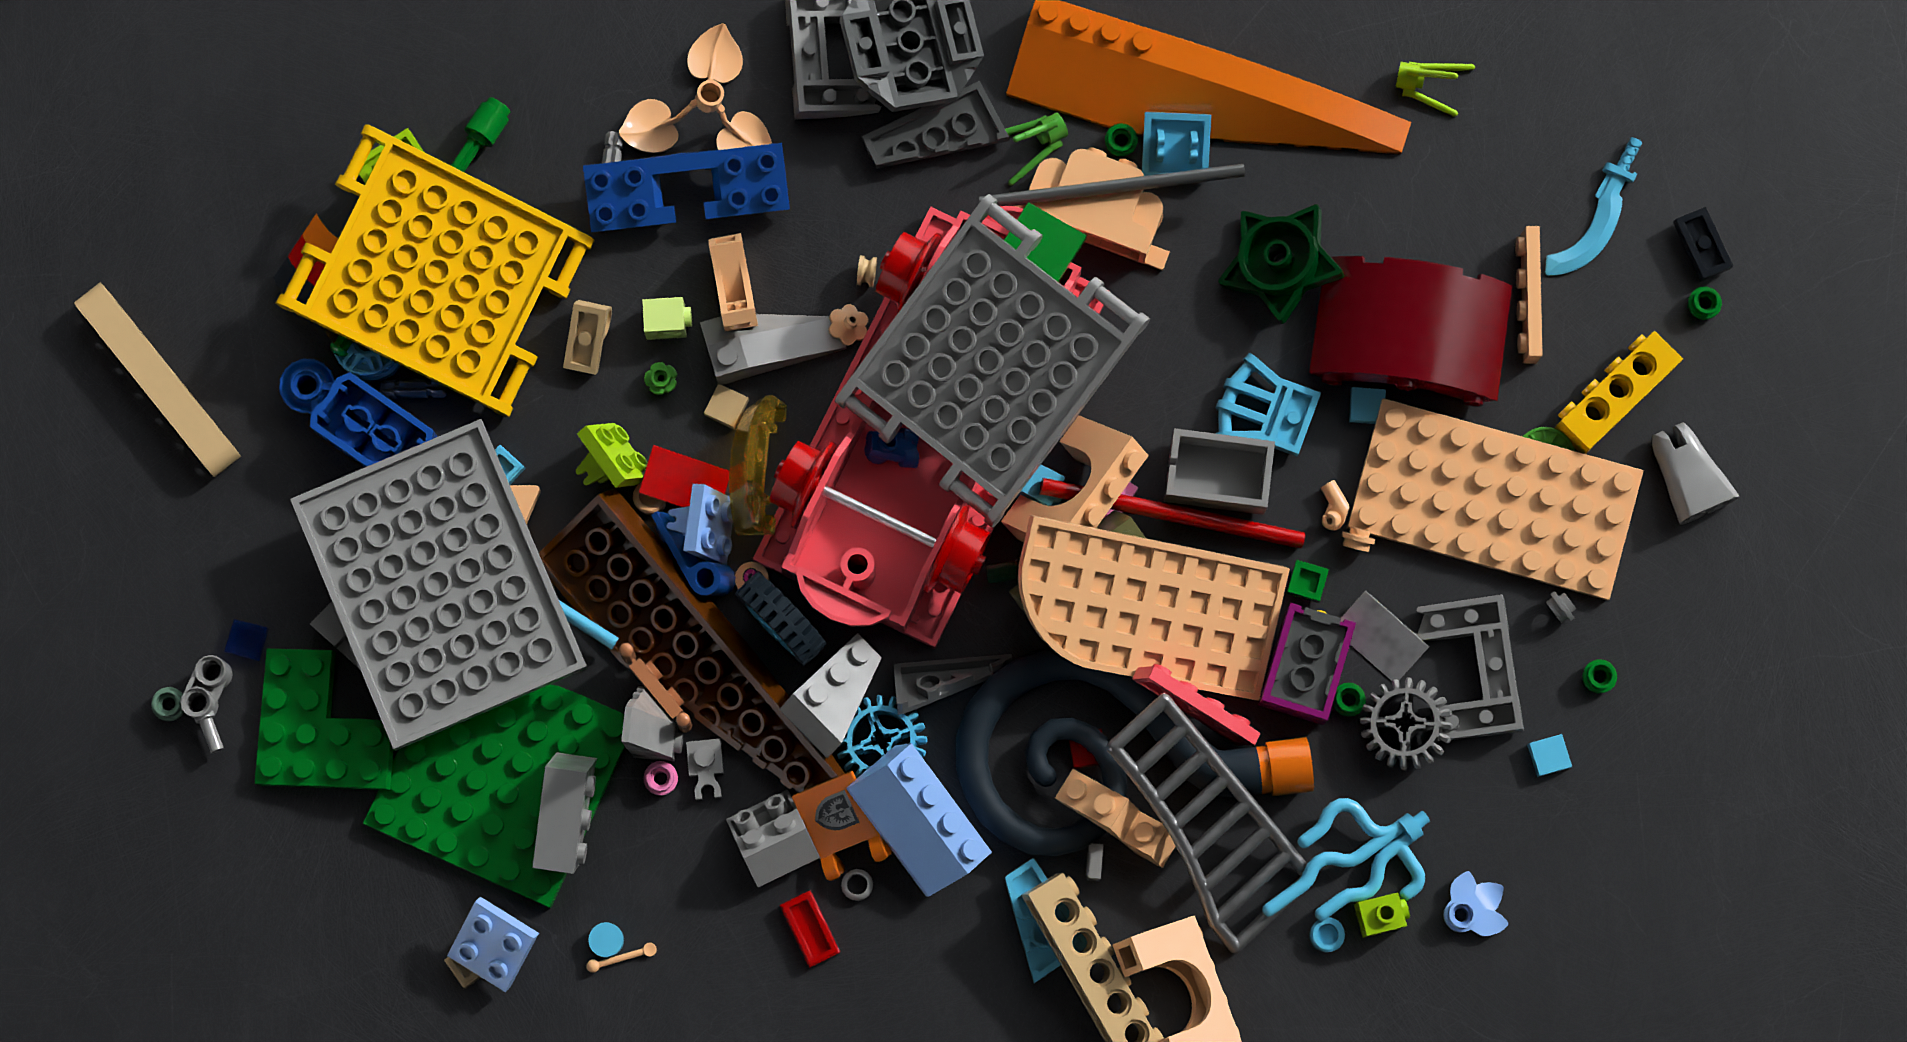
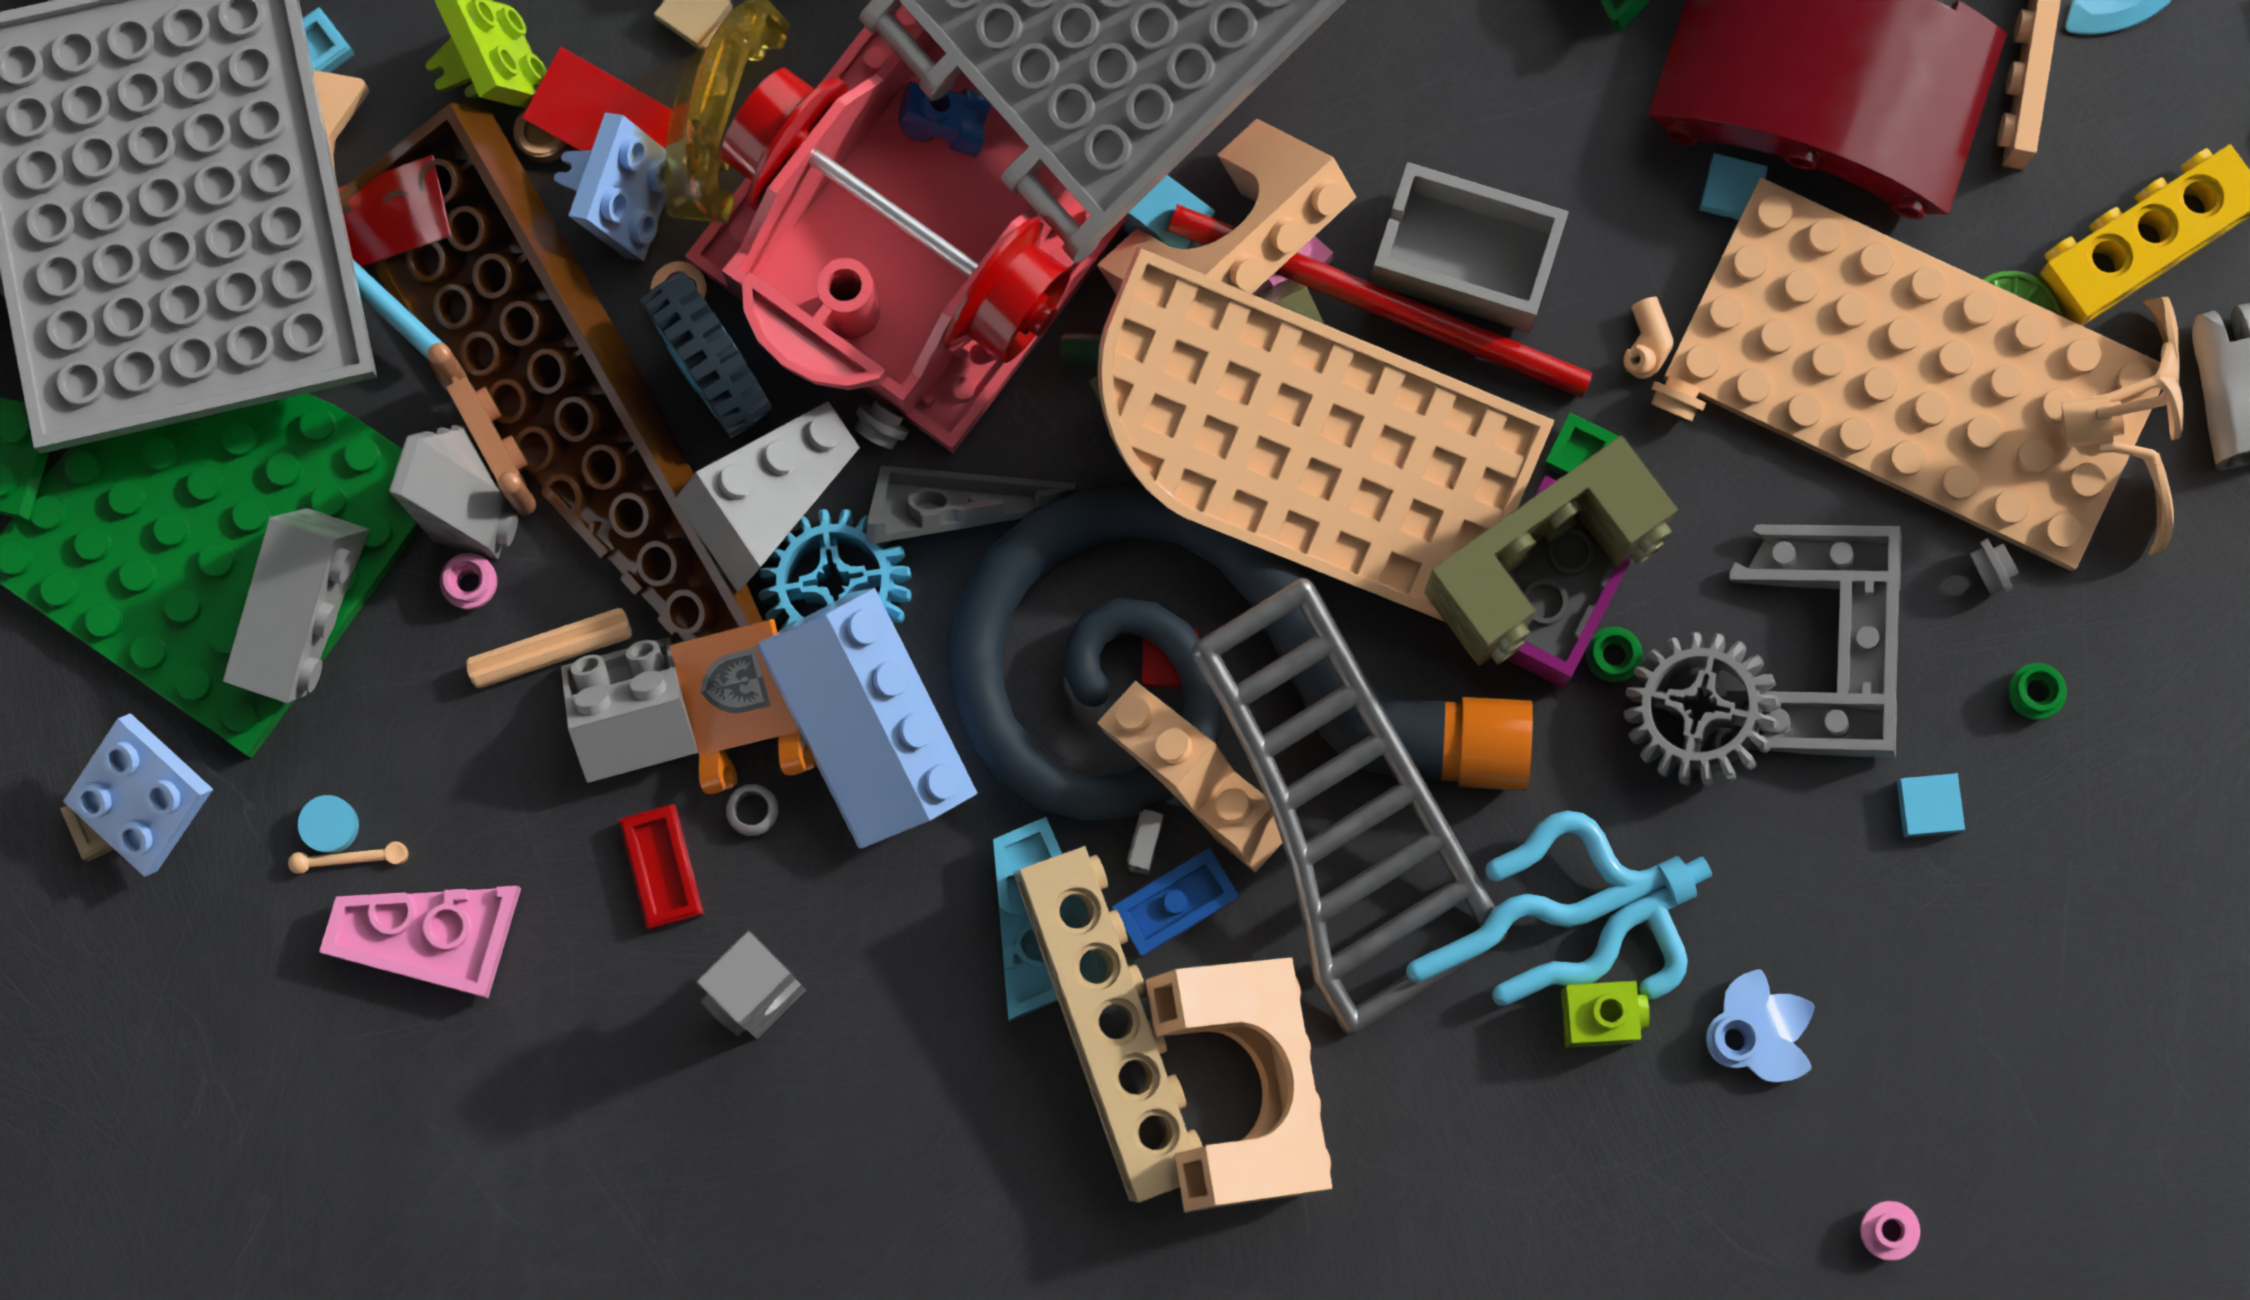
camera: 15 degrees right, 0 degrees up
(578, 568) = (402, 222): none -> red sticker
(678, 996) = (429, 937): none -> bright pink wing
(703, 577) = (595, 266): blue door -> none
(705, 762) = (545, 569): light grey plate -> none
(717, 809) = (548, 648): none -> light nougat axle
(882, 992) = (749, 988): none -> light grey arch
(889, 639) = (880, 424): none -> light grey plate
(1119, 894) = (1176, 902): none -> blue plate
(1205, 710) = (1371, 625): coral plate -> none
(1288, 412) = (1604, 166): medium azure plate -> none
(1327, 935) = (1507, 1031): medium azure tile -> none
(1332, 611) = (1610, 496): none -> olive plate
(1383, 637) = (1697, 572): flat silver sticker -> none
(1560, 1011) = (1872, 1230): none -> bright pink plate
(1608, 510) = (2102, 417): none -> light nougat plant

